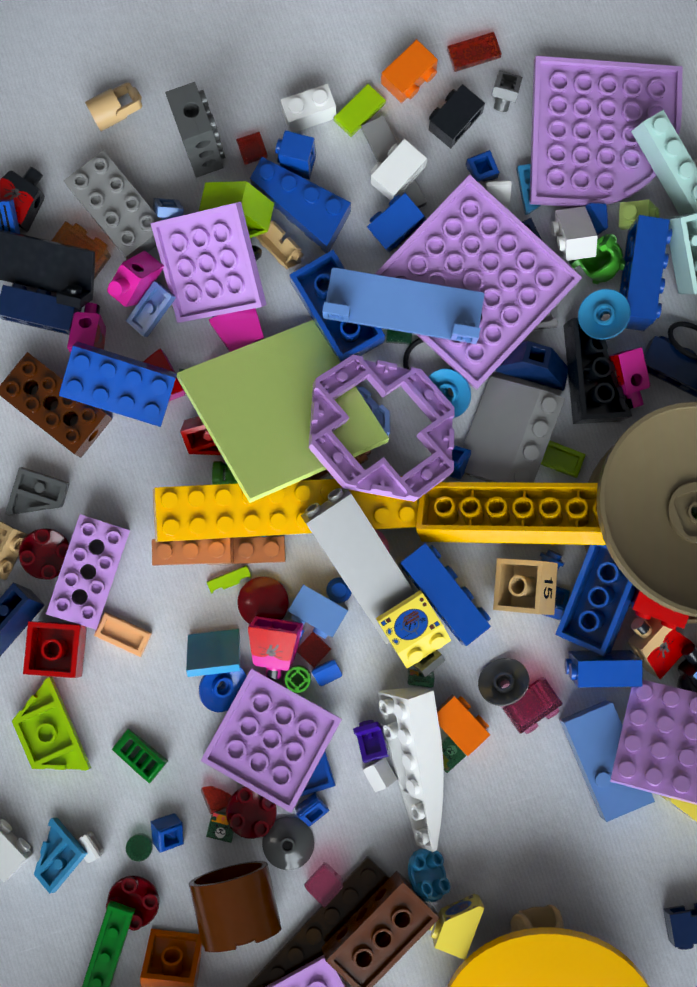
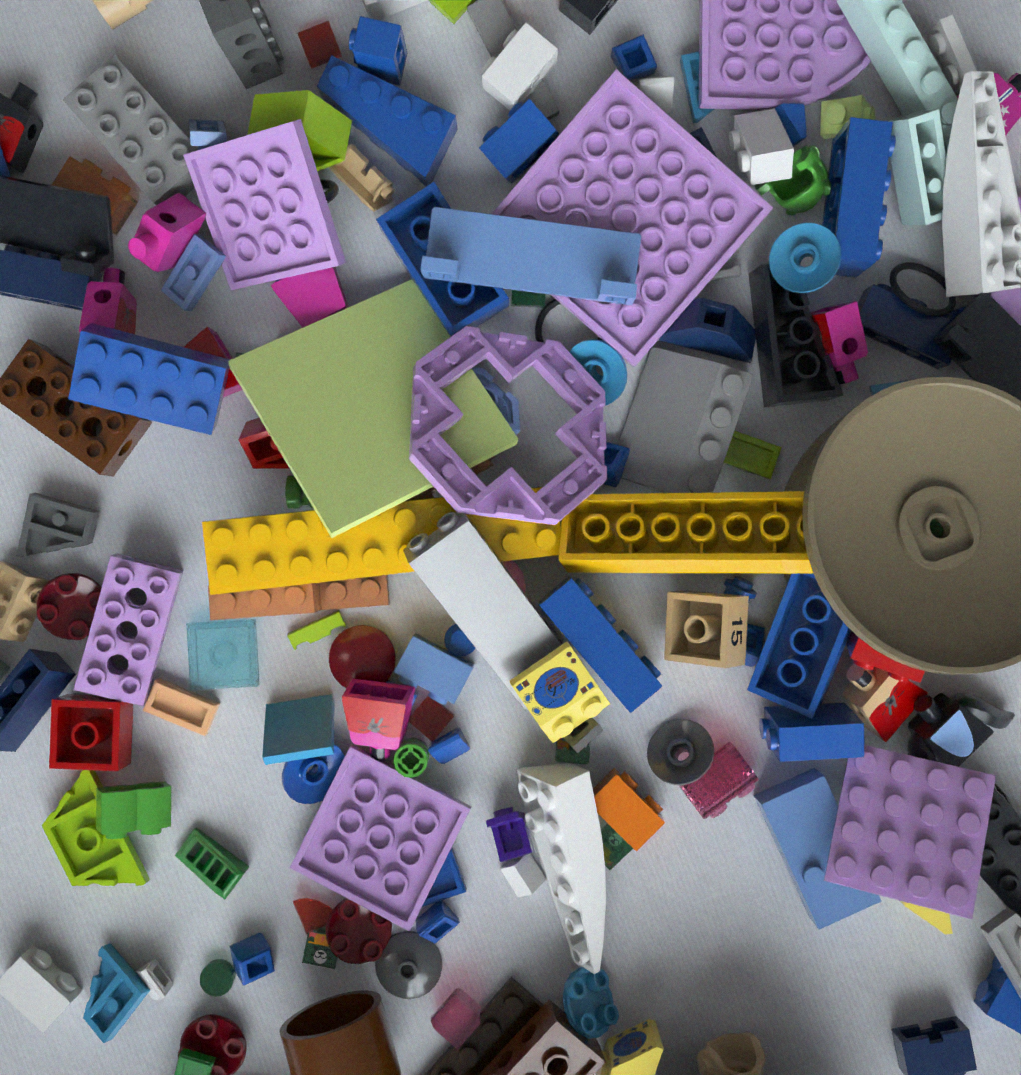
camera: 10 degrees left, 5 degrees up
(83, 709) = (133, 808): none -> bright green brick
(157, 595) = (222, 654): none -> clear light blue tile

